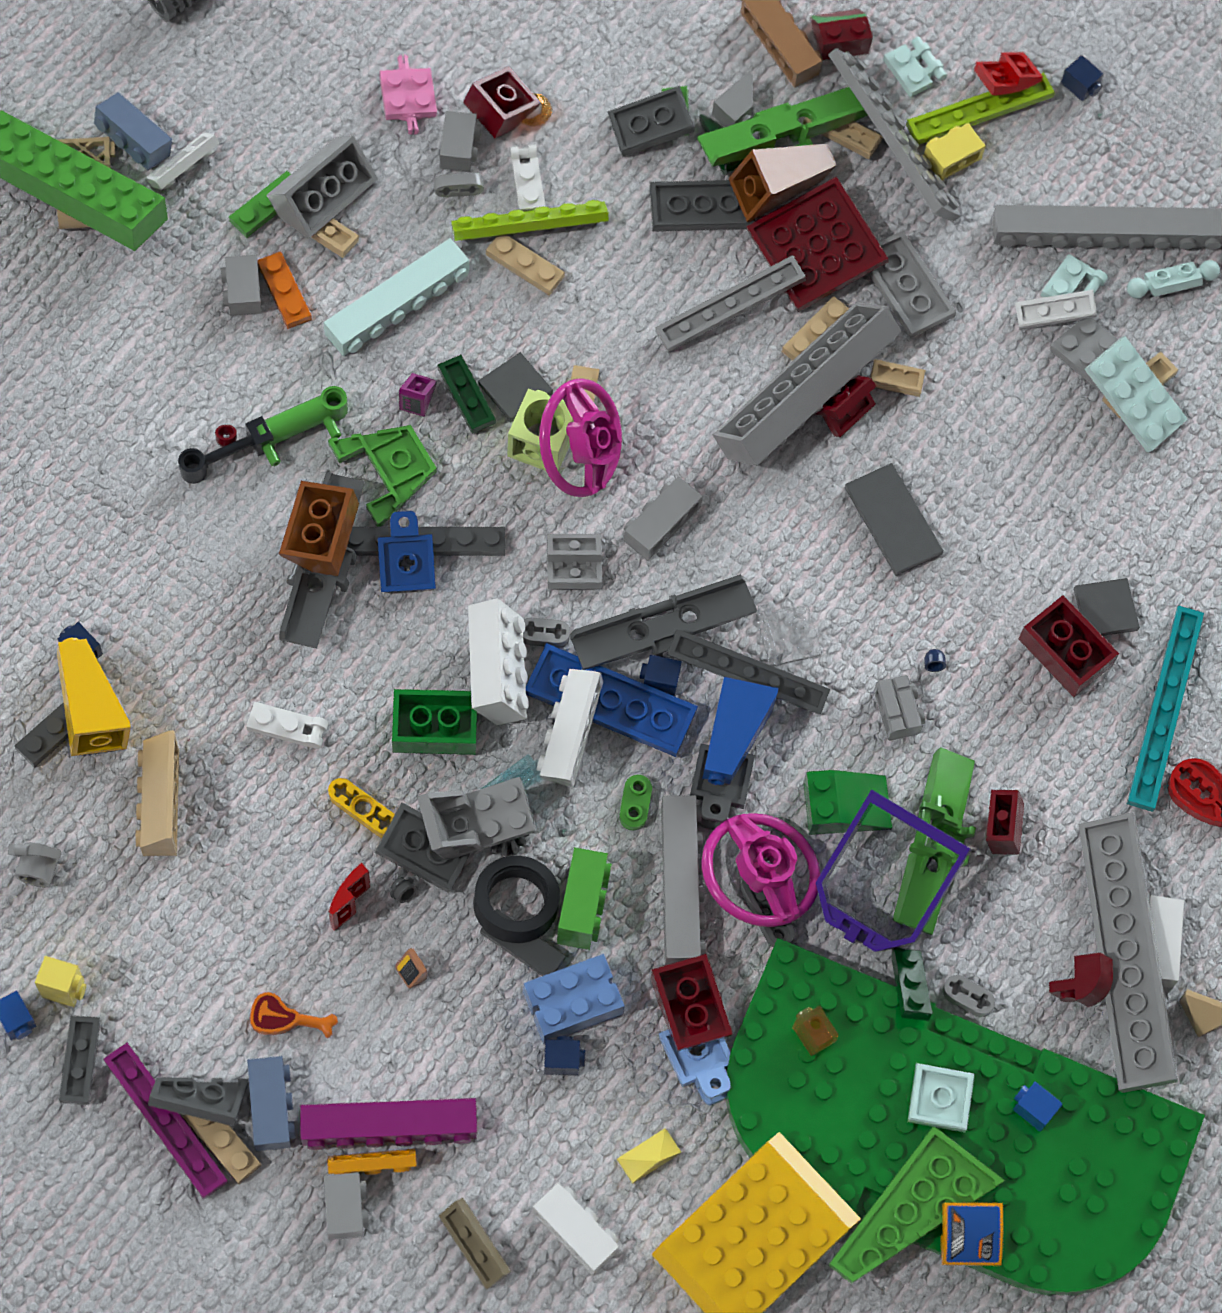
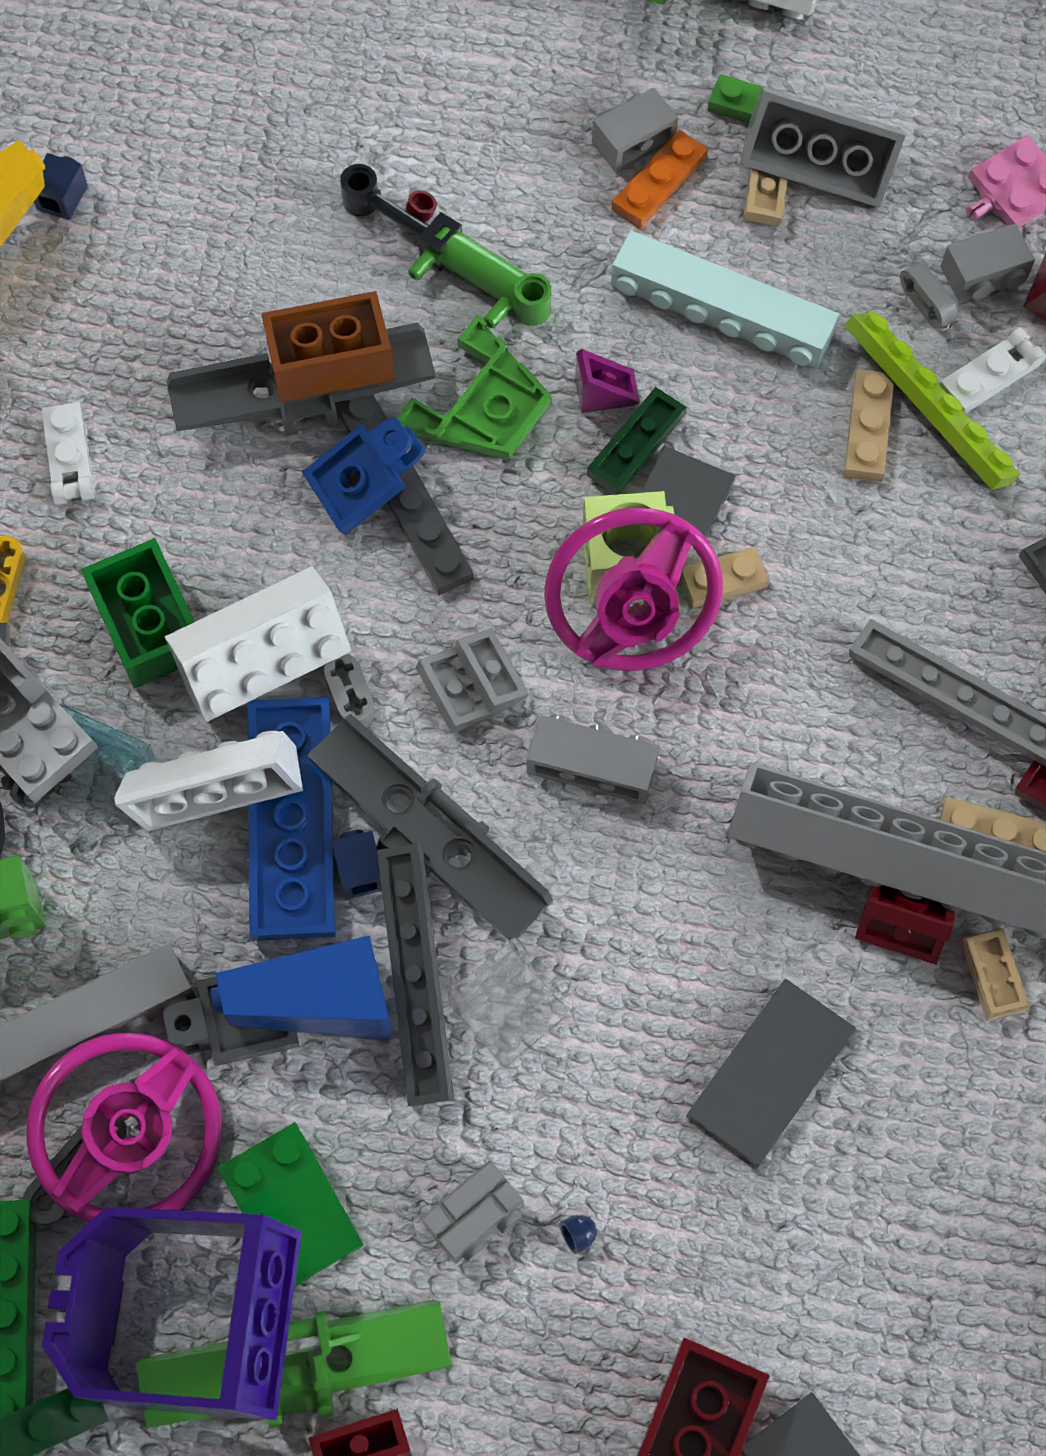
camera: 70 degrees right, 0 degrees up
(635, 801) = (159, 921): bright green plate -> none

